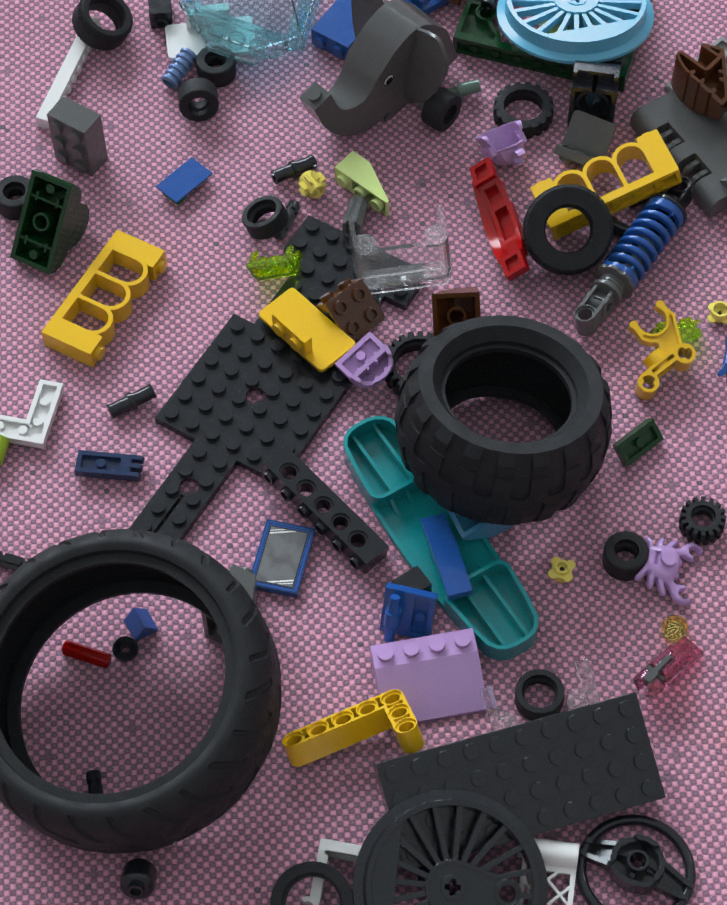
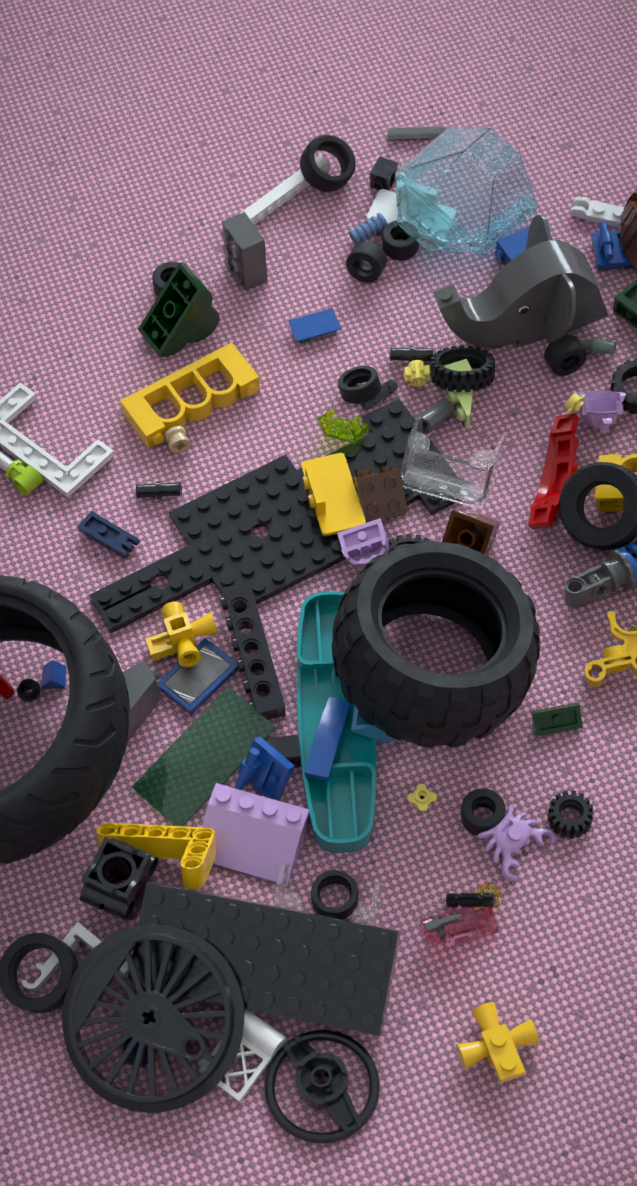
camera: 30 degrees right, 0 degrees up
(119, 345) = (177, 439): none -> tan wheel
(244, 526) = (180, 635): none -> yellow brick
(338, 630) = (202, 757): none -> clear green piece
(338, 761) = (112, 864): none -> black piece
(360, 172) = (462, 380): none -> black tyre
(483, 148) = (574, 403): none -> light yellow plate
(664, 638) = (470, 900): none -> black axle

